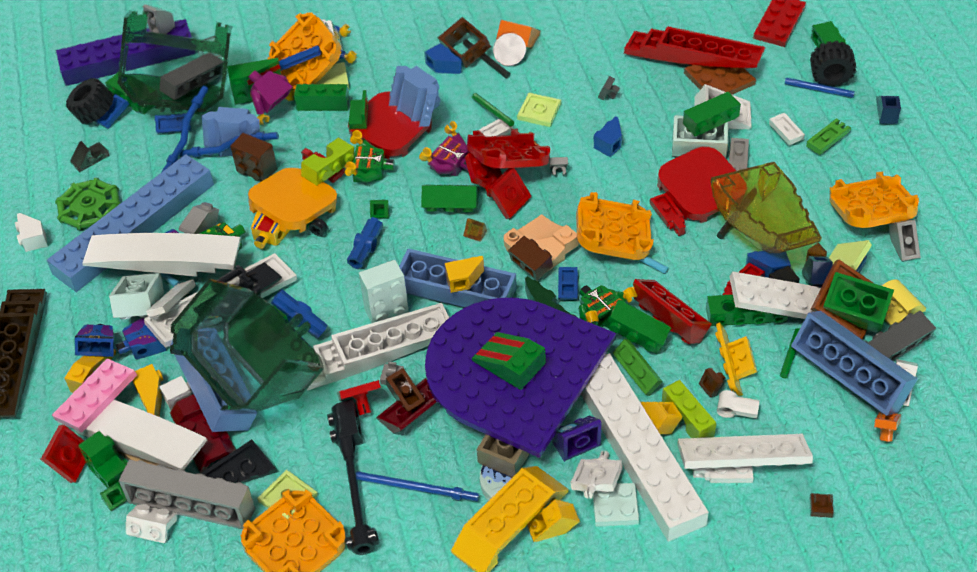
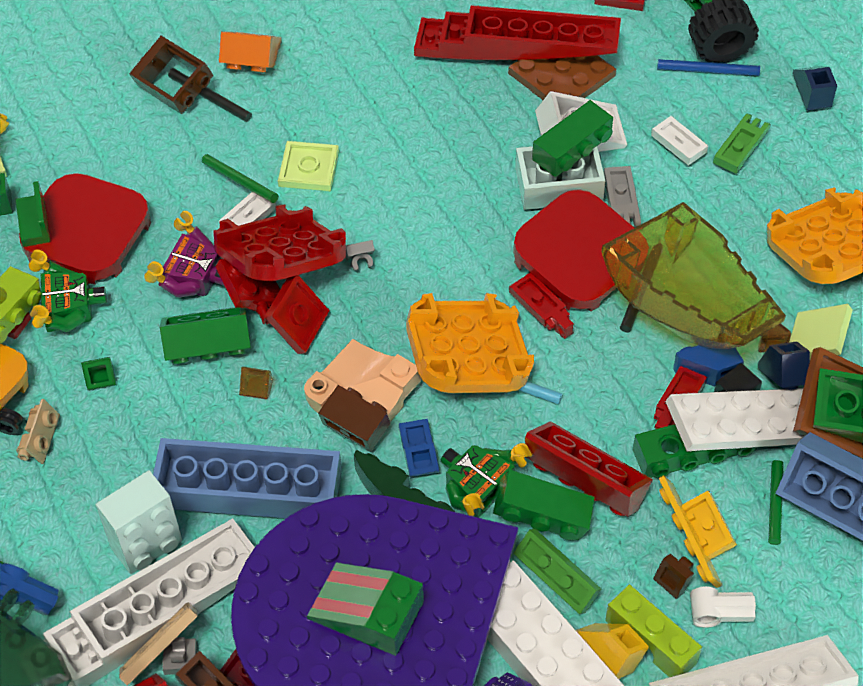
camera: 15 degrees left, 5 degrees up
(336, 236) = (41, 426): none -> tan hinge
(365, 243) = (88, 435): blue piece -> none
(379, 362) = (157, 643): none -> tan tile
(415, 94) = (115, 175): medium blue slope -> none
(442, 60) = (143, 108): blue slope -> none
(463, 273) = (259, 468): yellow slope -> none
(509, 49) = (242, 75): piece -> none
(608, 138) = (425, 197): blue slope -> none
(609, 89) = (406, 117): dark grey tile -> none

